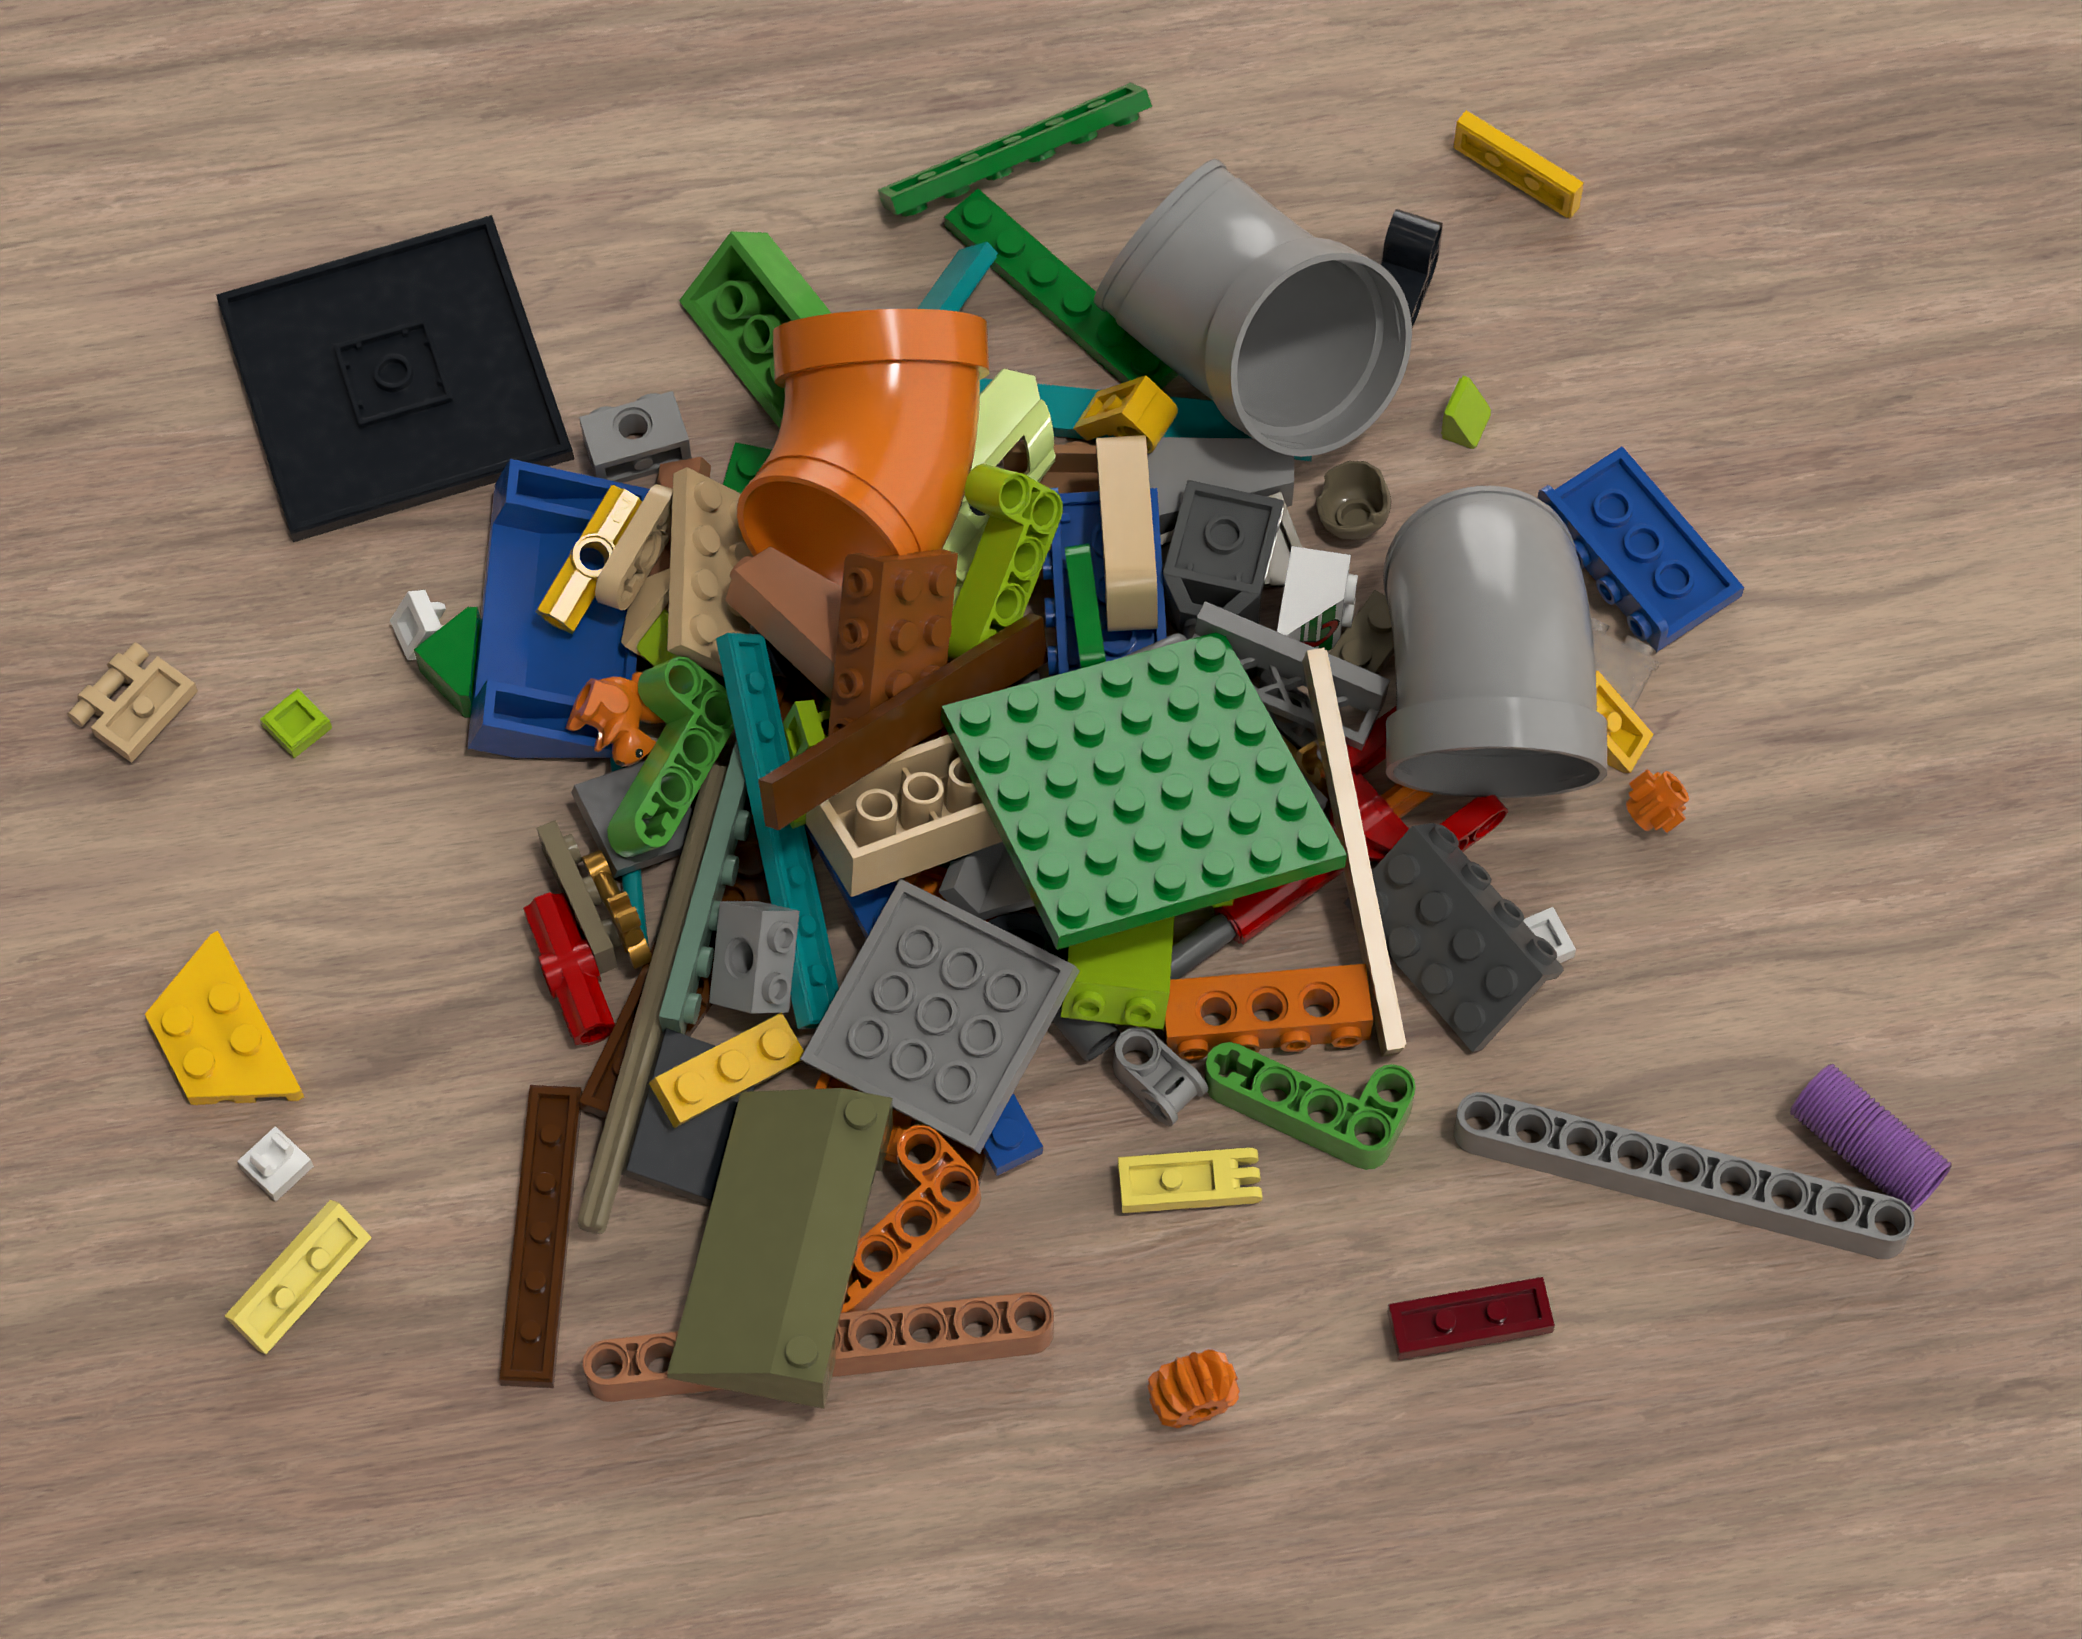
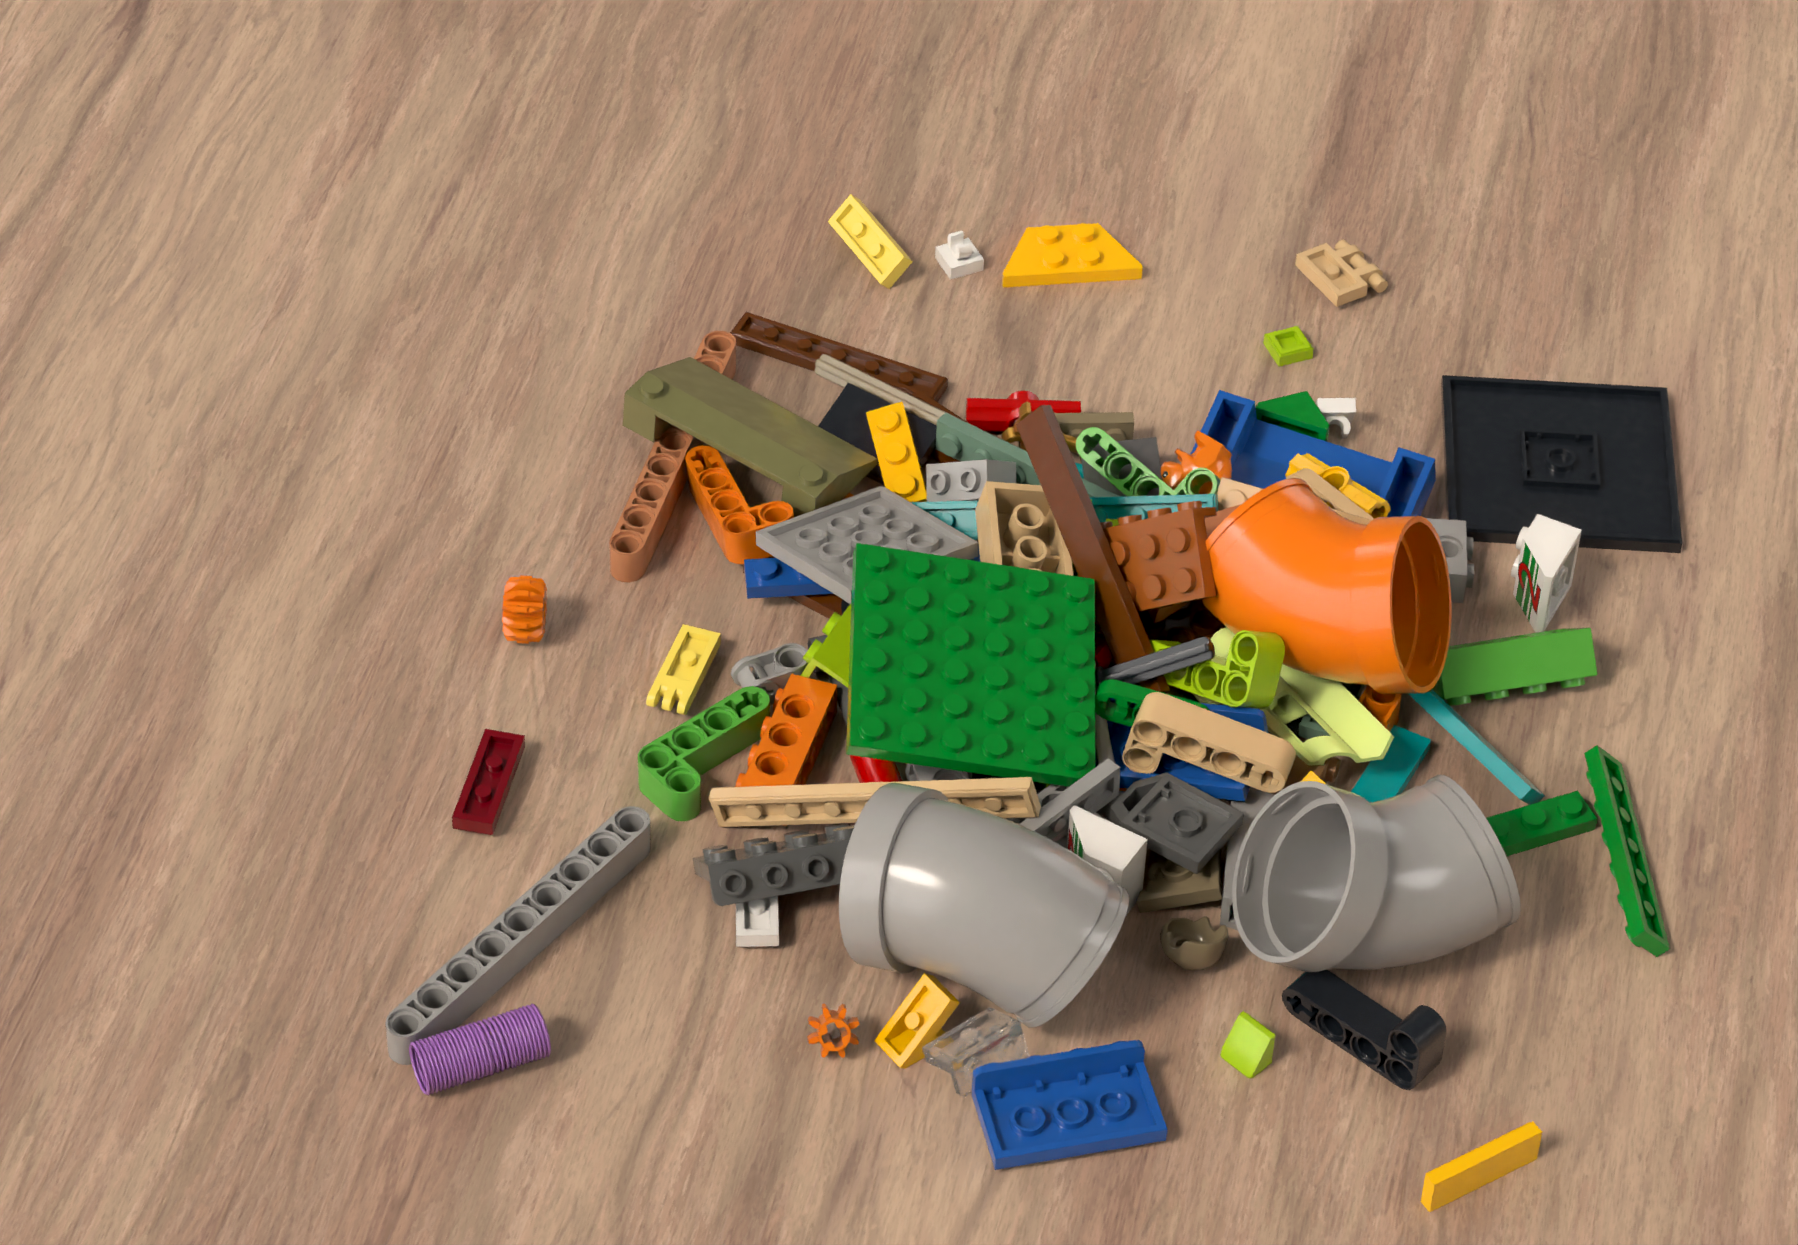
camera: 110 degrees right, 20 degrees down
(634, 315) = (1544, 568): none -> white slope
(1028, 610) = (1159, 662): none -> axle

